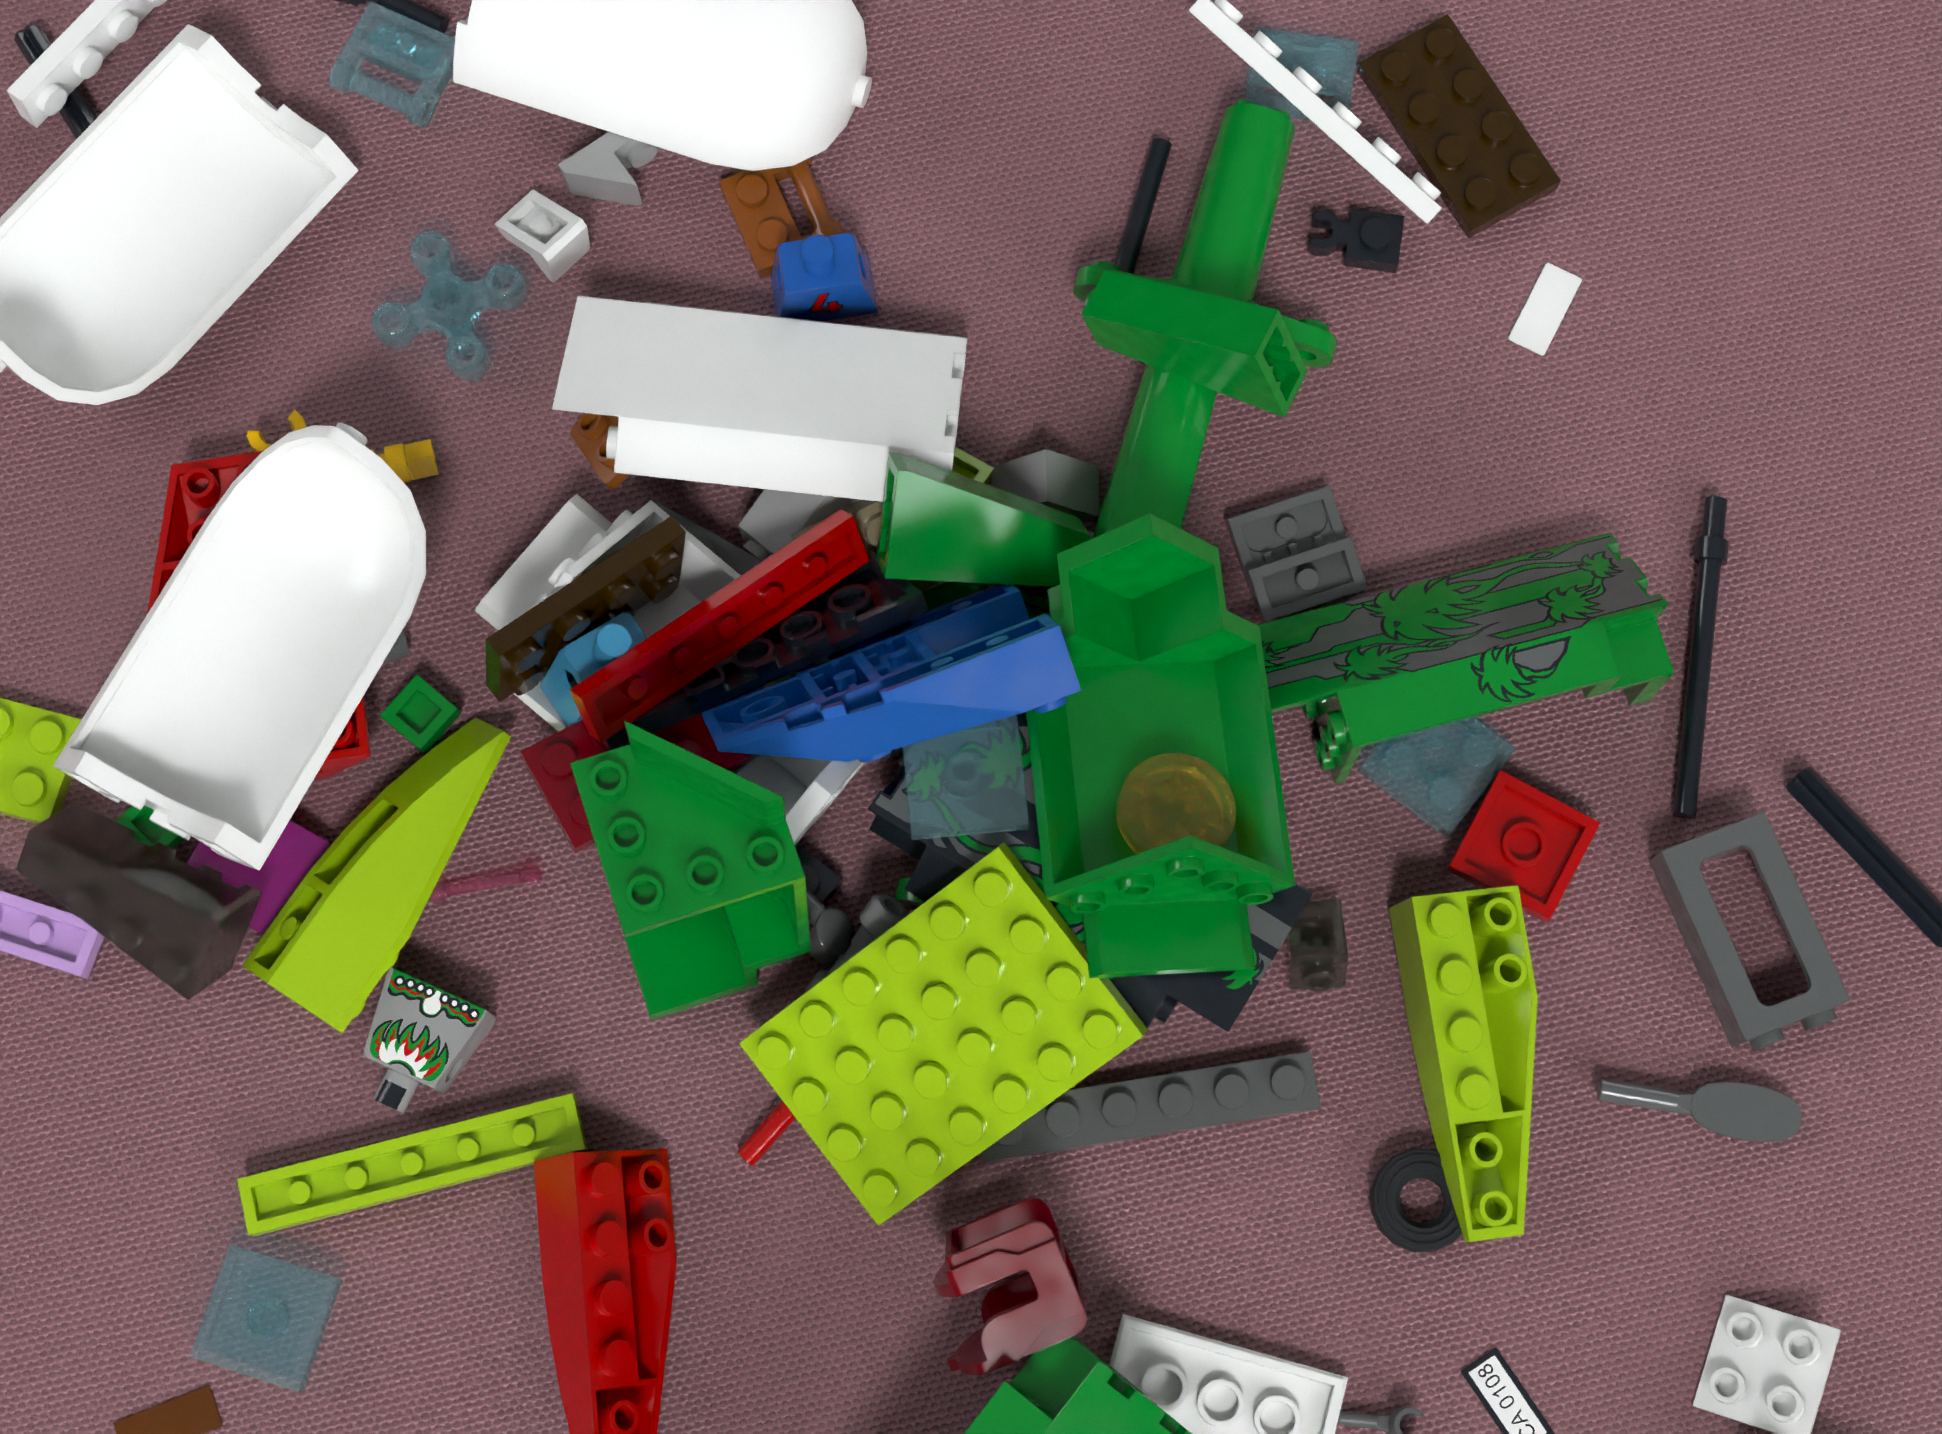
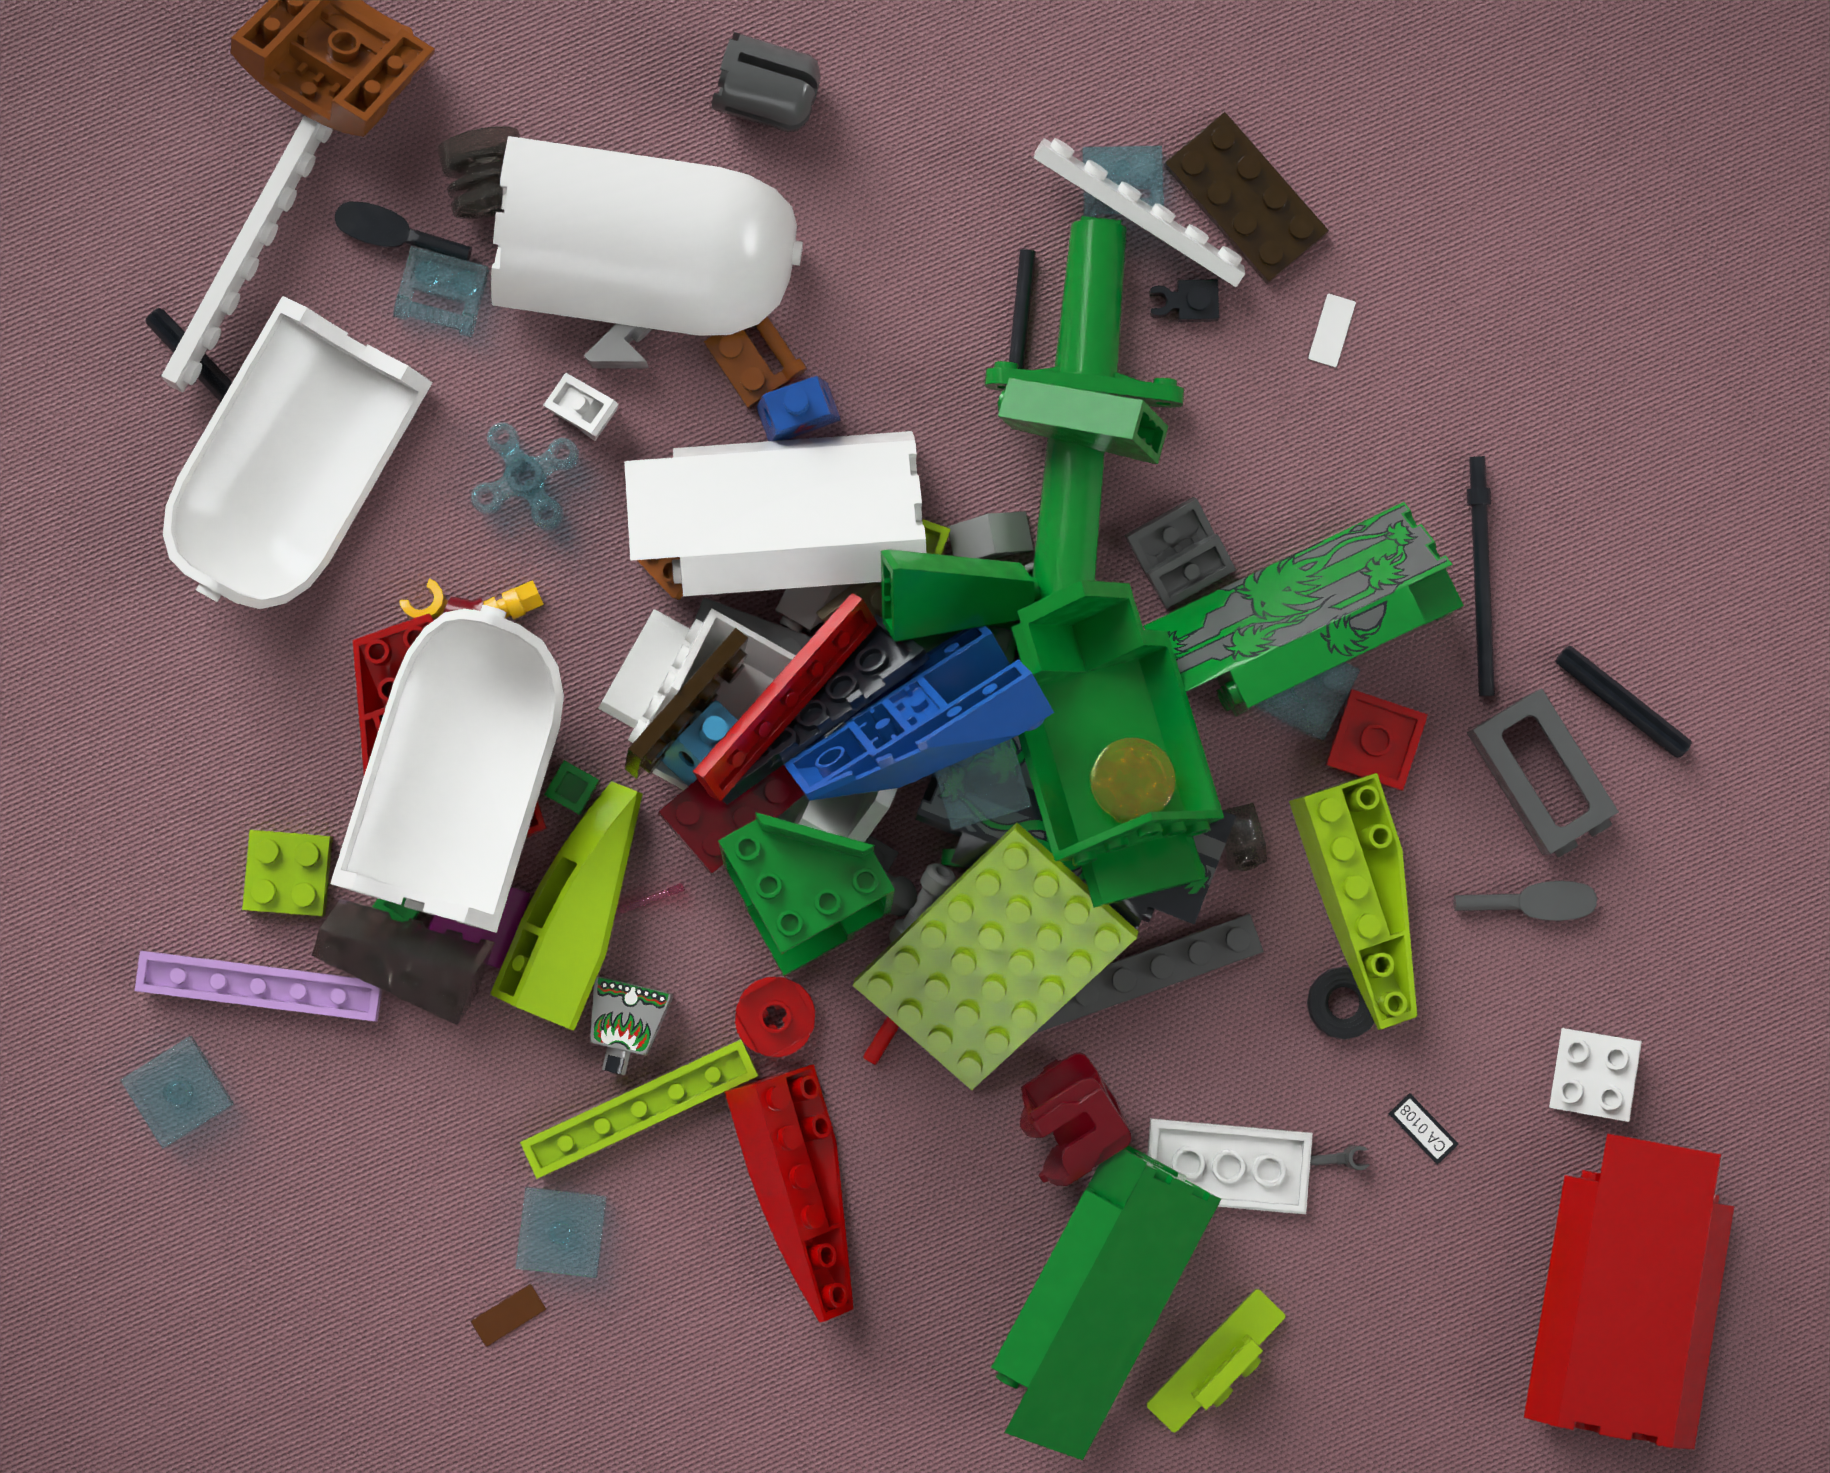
camera: 15 degrees left, 10 degrees up
(597, 1058) = (768, 1038): none -> red plate

